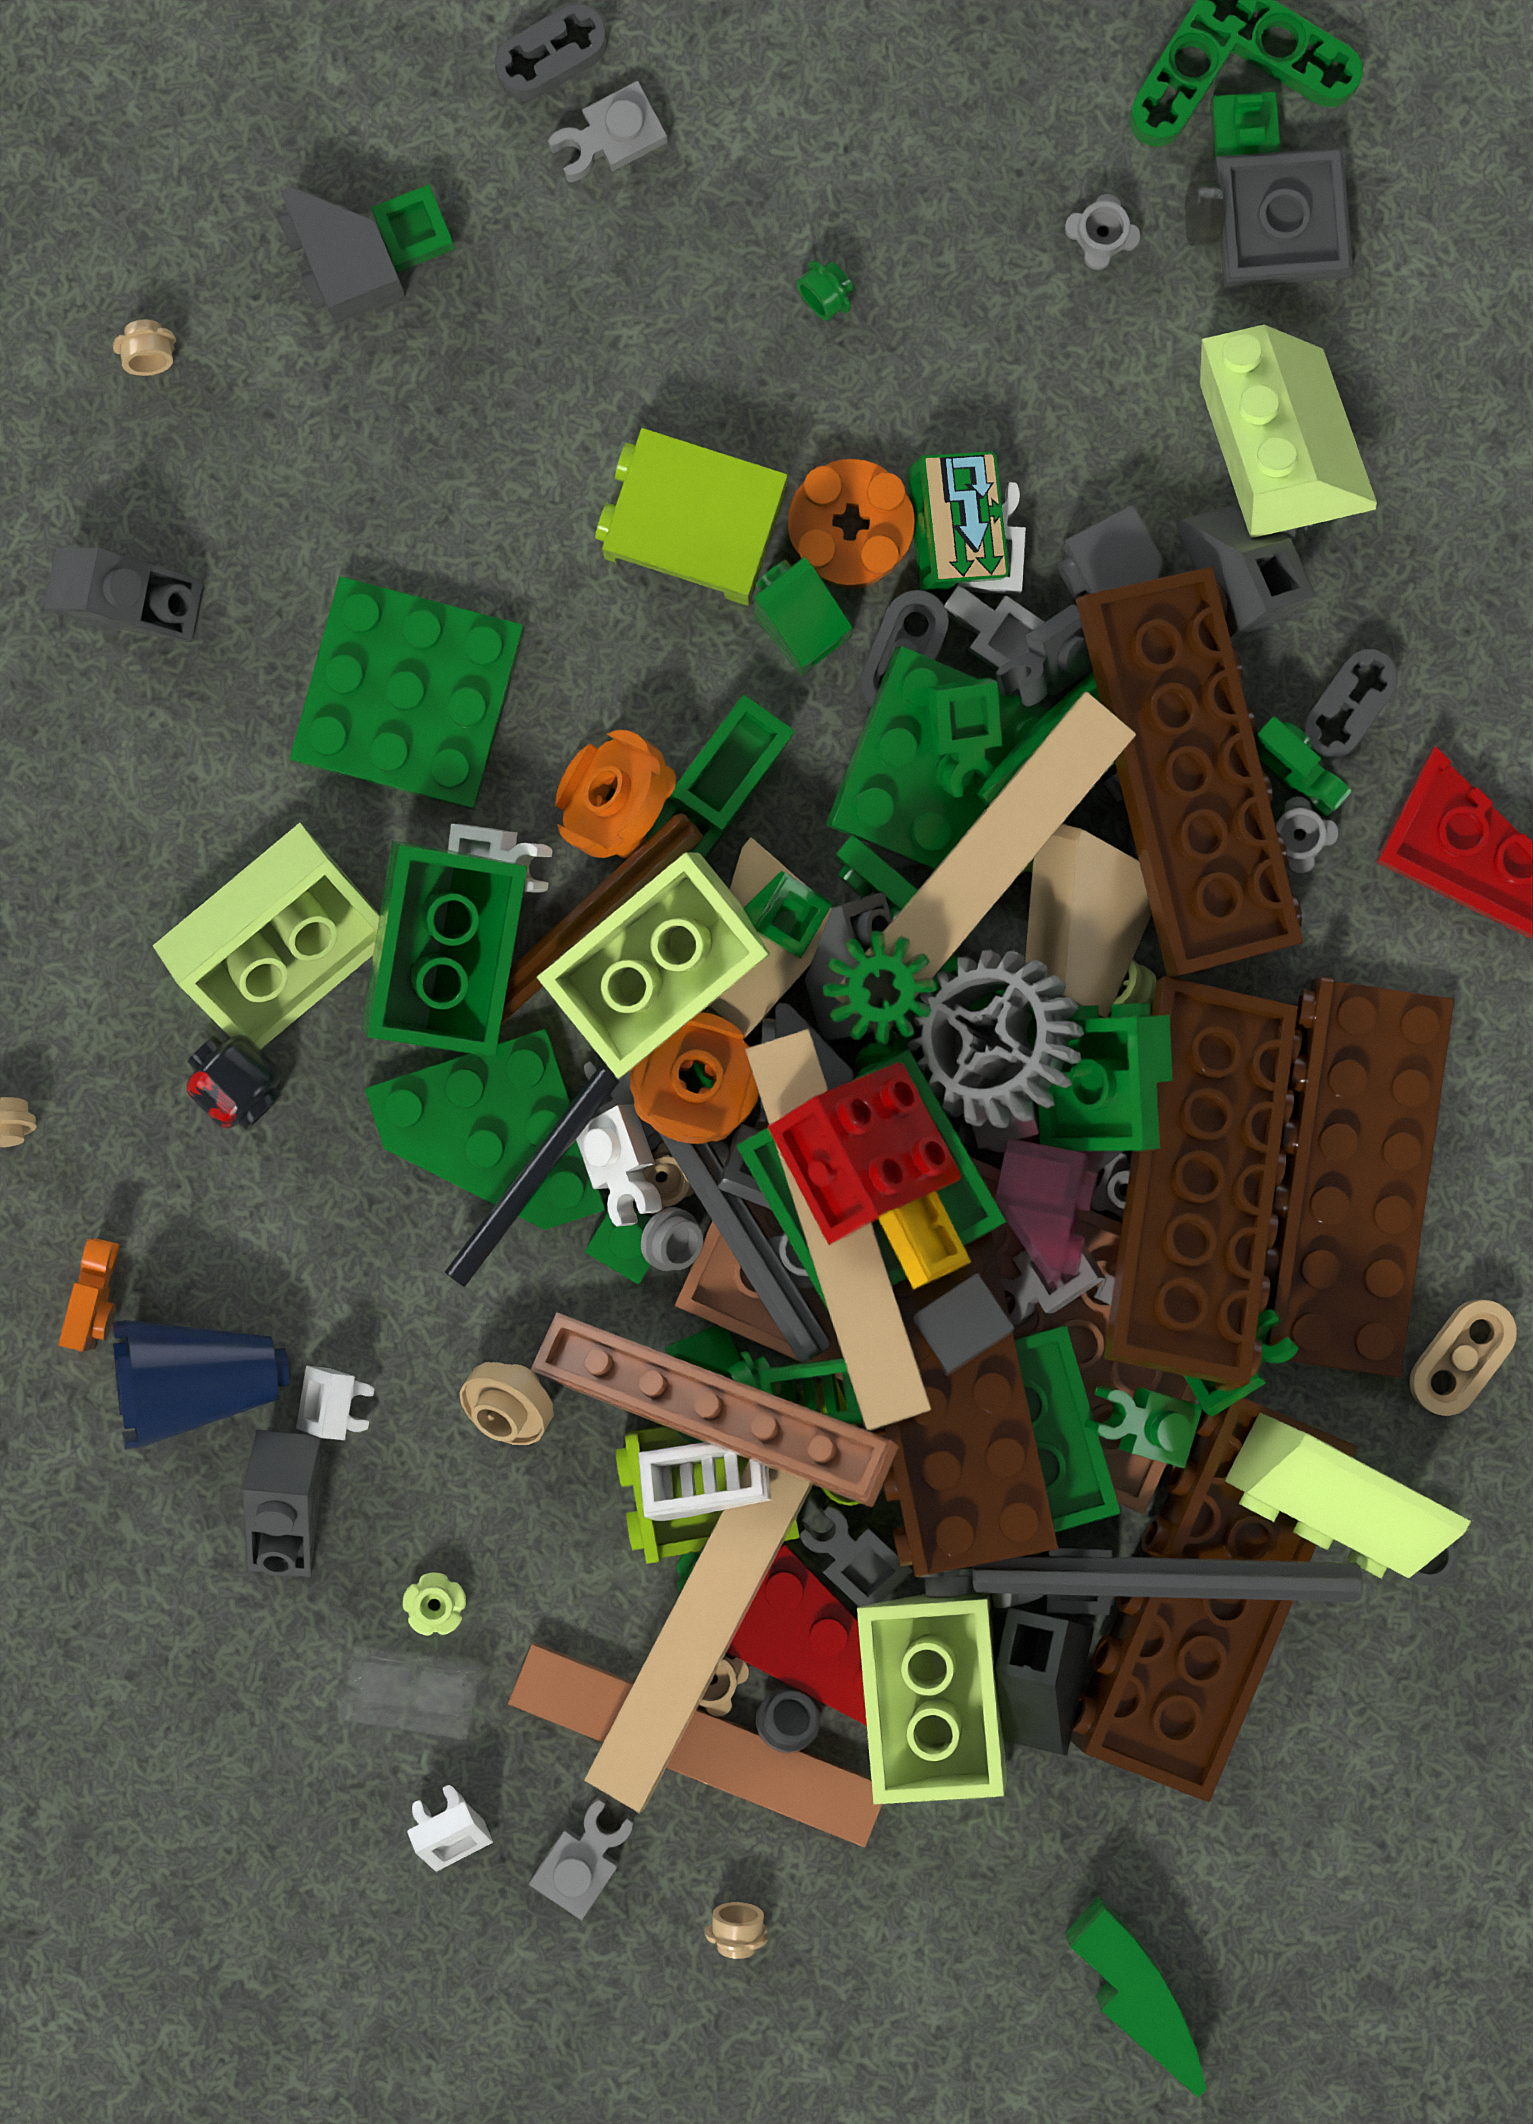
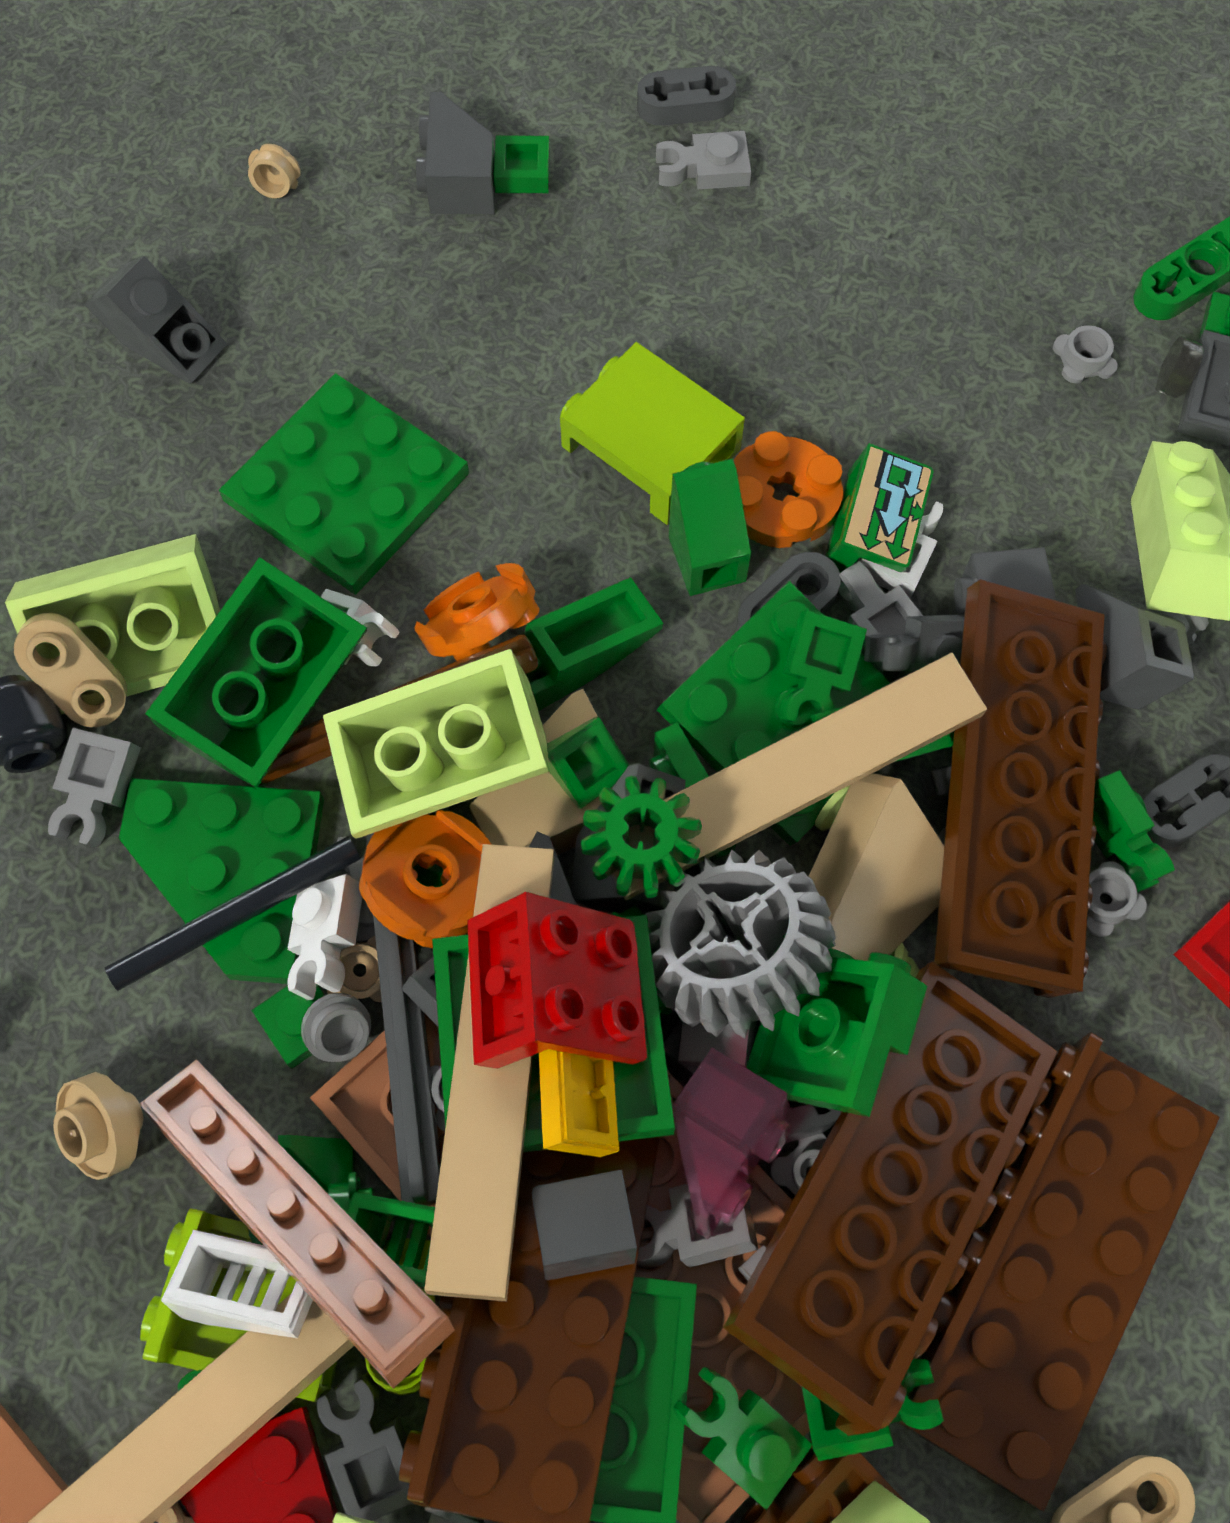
camera: 20 degrees right, 20 degrees down
(265, 1014) = (75, 670): none -> tan plate
(330, 1098) = (93, 774): none -> light grey plate
(825, 289) = (834, 314): green plate -> none

